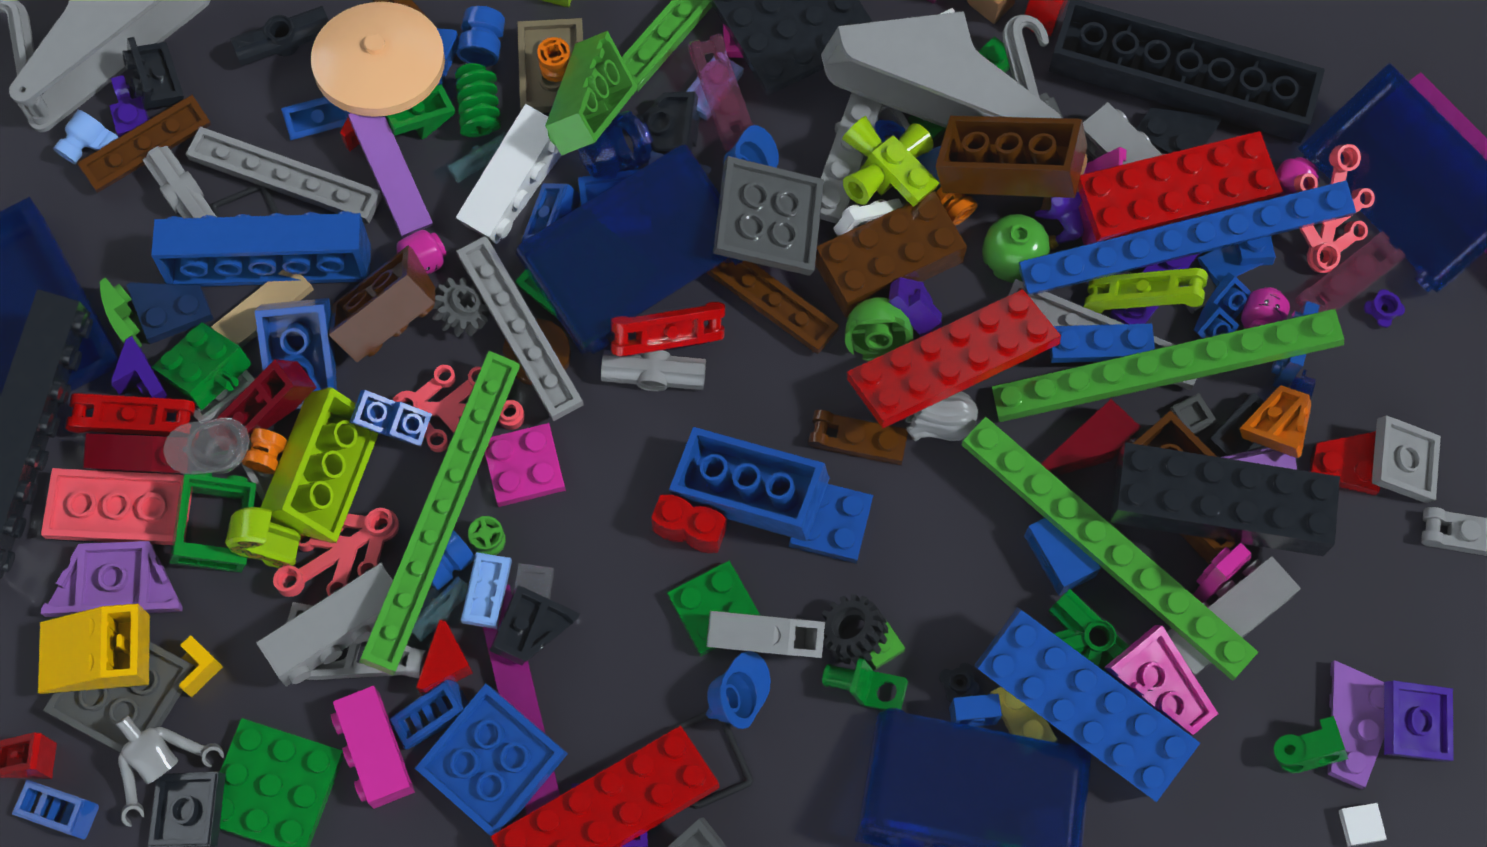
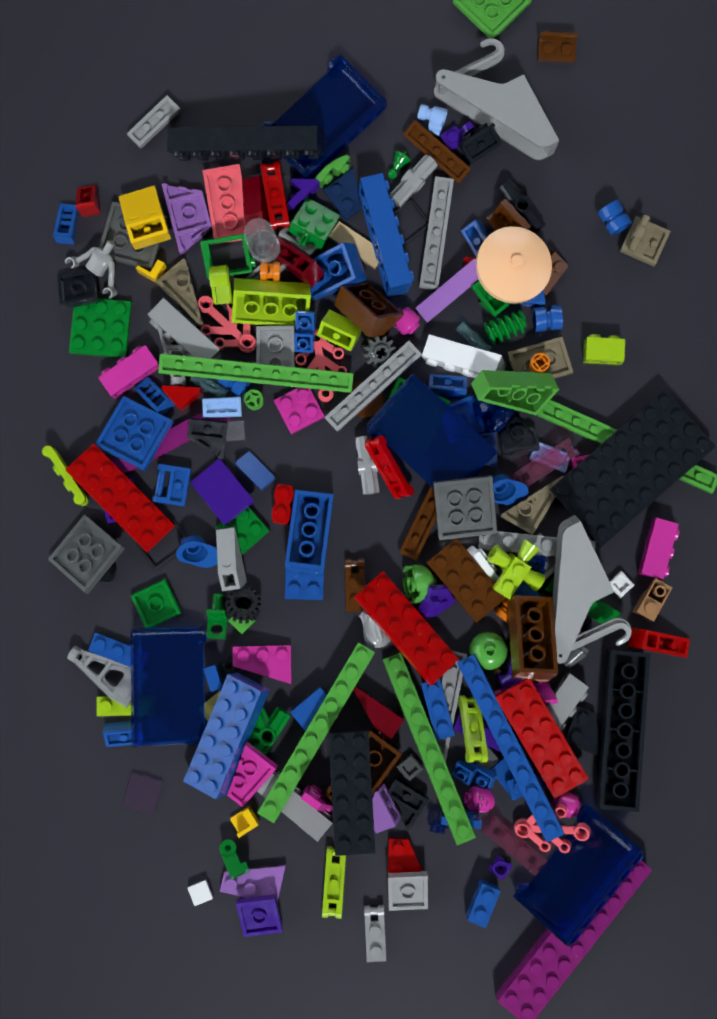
camera: 80 degrees right, 15 degrees up
(138, 205) = (400, 160): none -> green piece
(240, 623) = (179, 288): none -> dark tan wing
(292, 59) = (506, 216): none -> reddish brown bracket
(399, 477) = (275, 345): none -> light grey plate
(405, 361) = (339, 330): none -> lime brick
(609, 705) = (177, 486): none -> blue plate
(615, 563) = (255, 470): none -> blue slope
(639, 626) = (222, 492): none -> dark purple tile
(795, 131) = (531, 511): none -> dark tan wing
(817, 793) = (156, 604): none -> green tile
(960, 616) = (264, 660): none -> dark pink wing
(1245, 714) = (245, 821): none -> yellow panel
(1280, 422) = (410, 817): orange wing -> none
(1375, 583) = (333, 884): none -> lime plate
(1442, 344) = (483, 903): none -> blue brick

